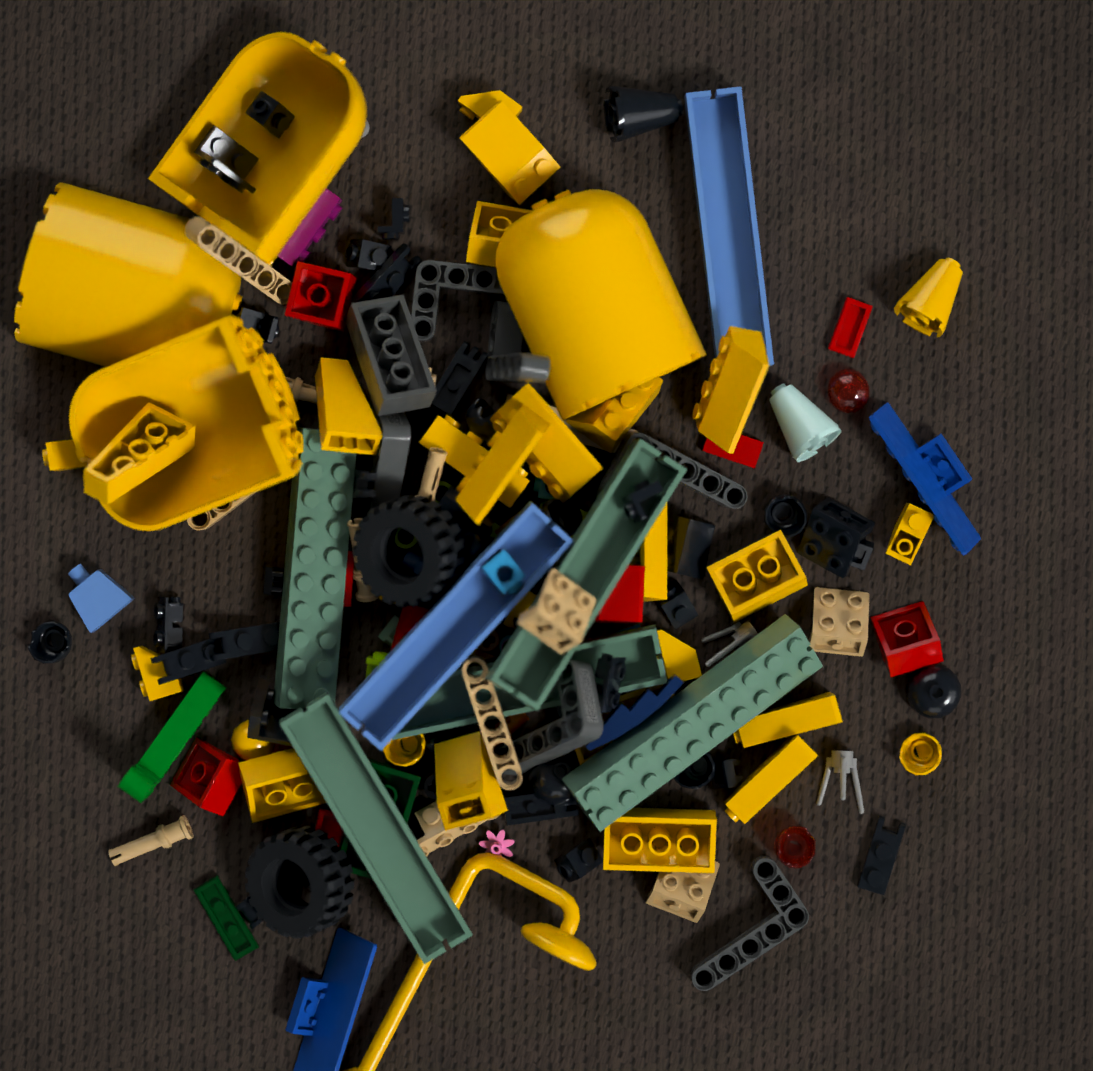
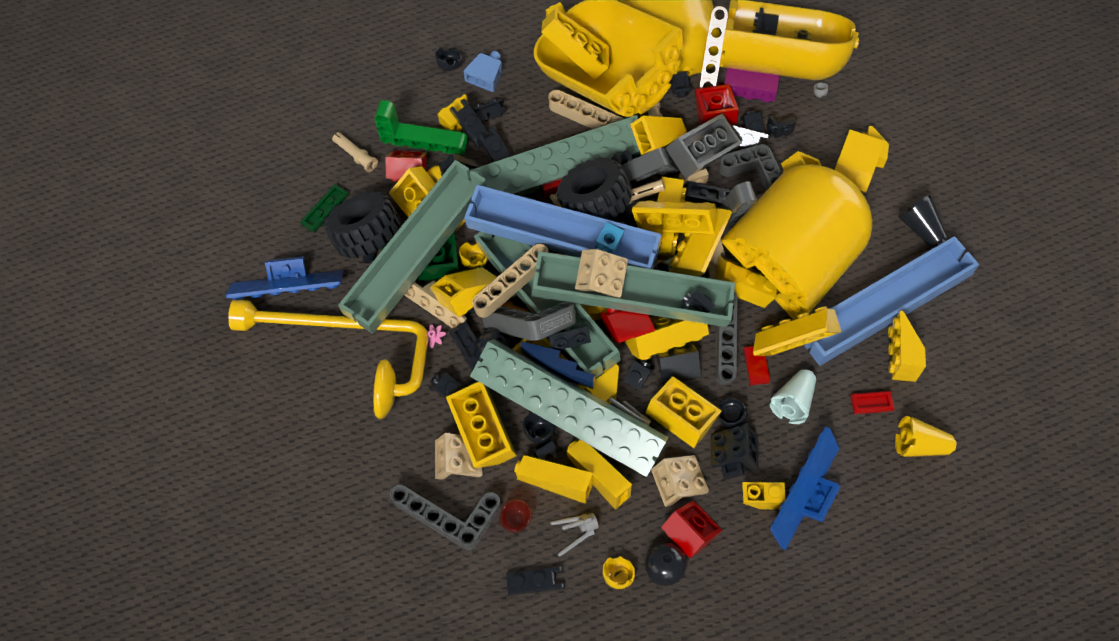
camera: 65 degrees right, 25 degrees down
(814, 252) = (906, 350): none -> yellow slope
(848, 390) = (833, 417): clear red hair -> none

